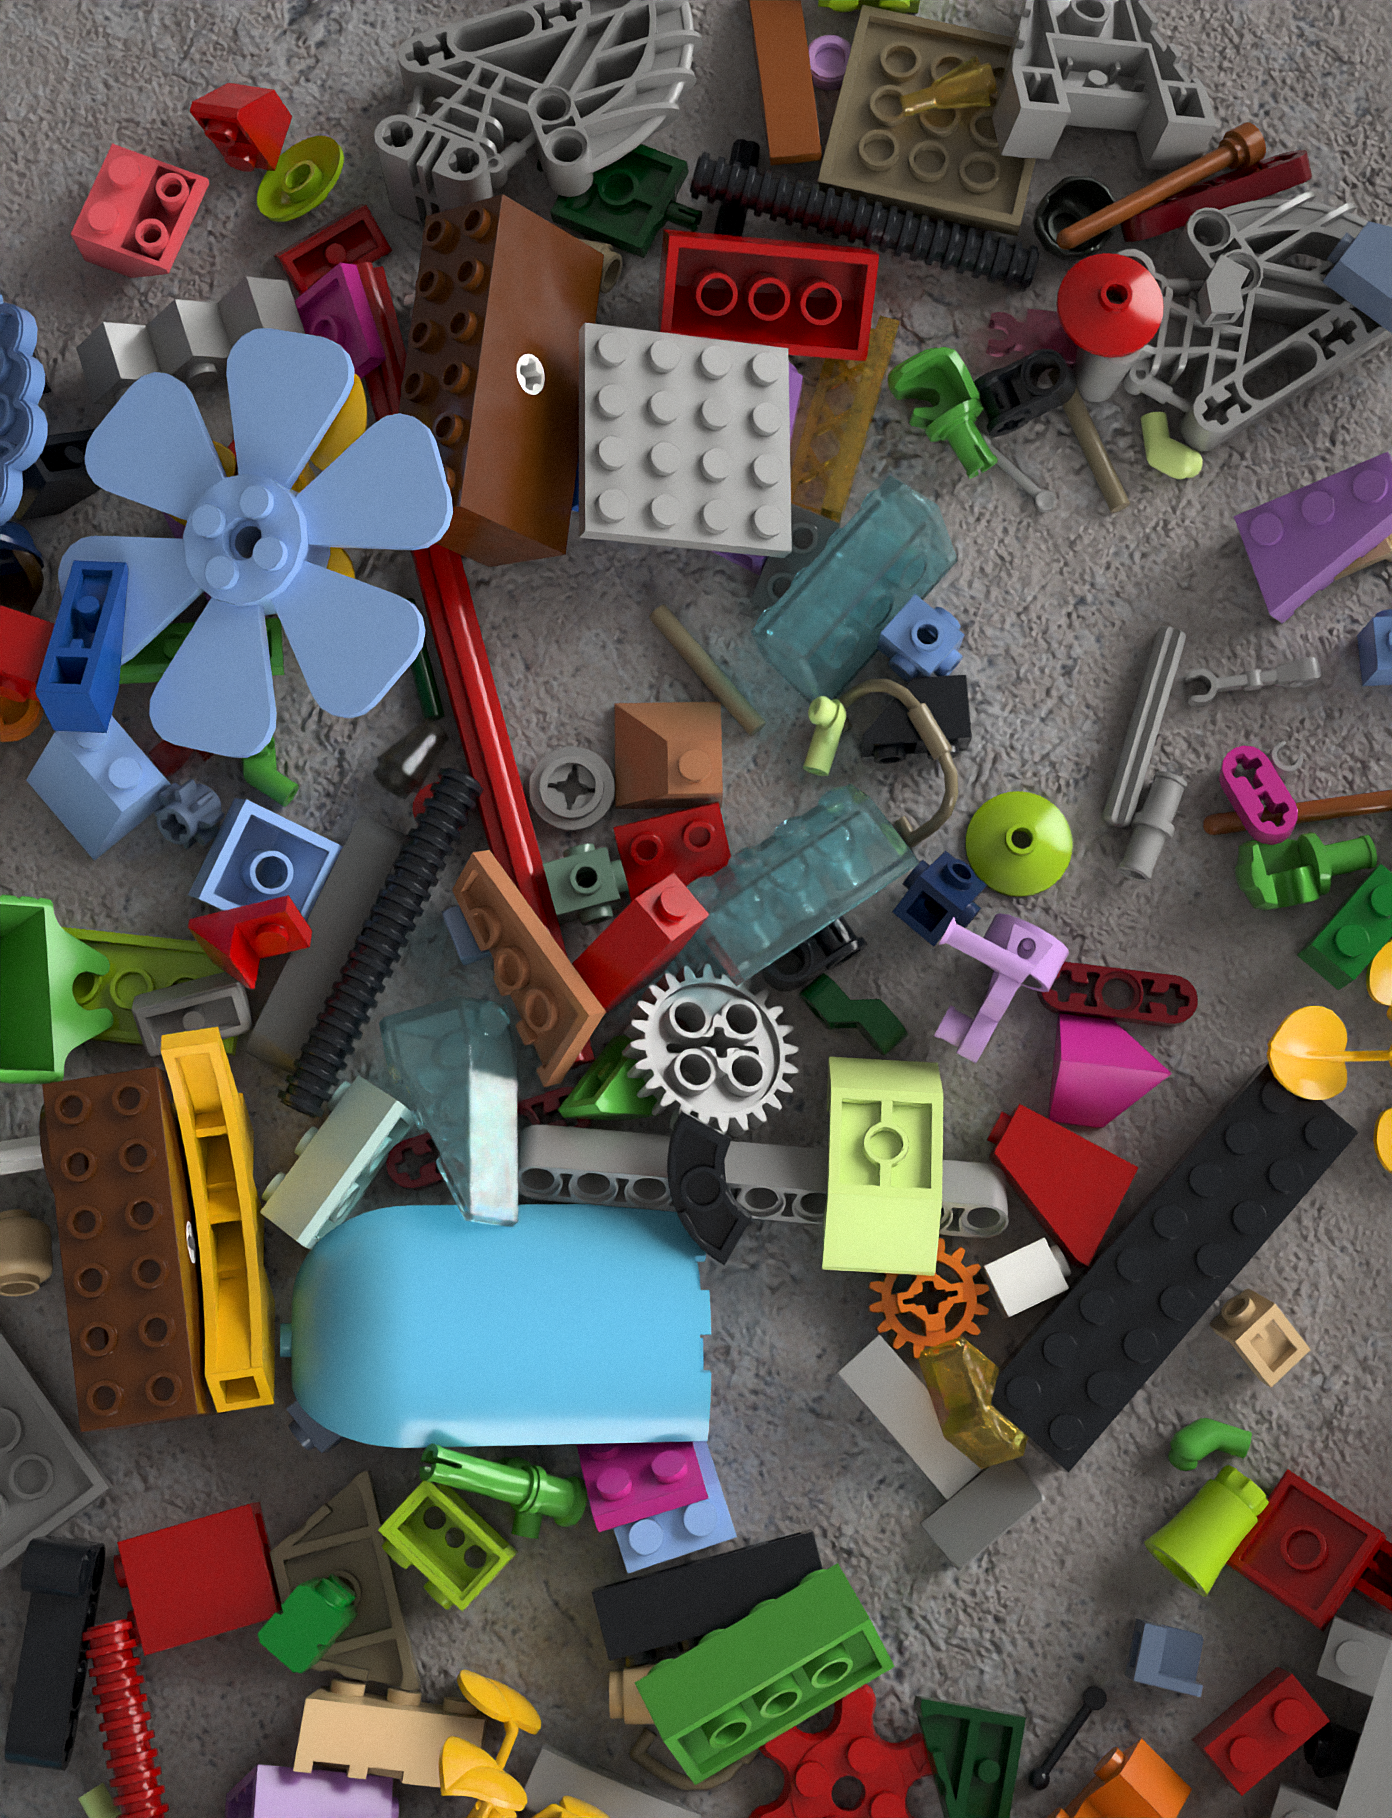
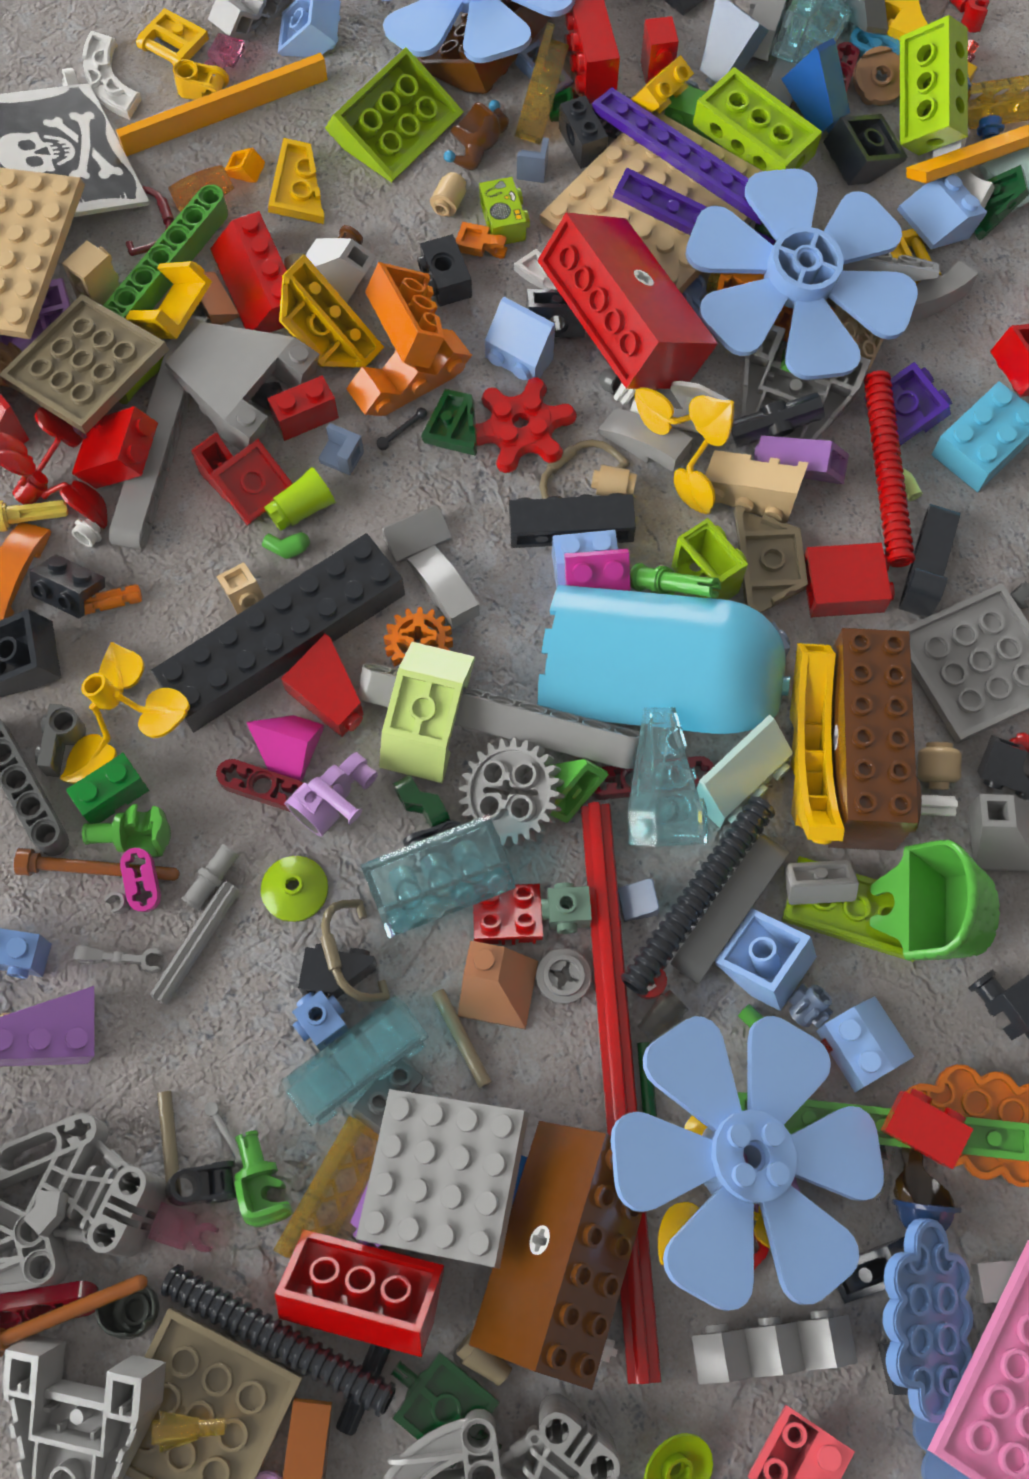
camera: 170 degrees left, 10 degrees down
(85, 649) = (868, 1114): blue slope -> none
(248, 933) = (786, 910): red slope -> none
(309, 1622) = (791, 532): green brick -> none
(340, 312) = (668, 1325): dark pink plate -> none
(347, 239) = (662, 1411): red slope -> none
(528, 966) = (612, 861): nougat wing -> none
(640, 942) = (547, 852): red slope -> none
(701, 1188) = (534, 706): black tile -> none
(764, 1673) = (553, 469): bright green slope -> none
(829, 721) = (393, 981): yellowish green arm -> none
(938, 895) = (348, 852): dark blue brick -> none
(962, 1392) = (413, 577): clear yellow slope -> none
(1026, 1277) = (361, 641): white brick -> none
(1095, 321) = (143, 1217): red dish -> none
(1166, 453) = (122, 1122): yellowish green arm -> none

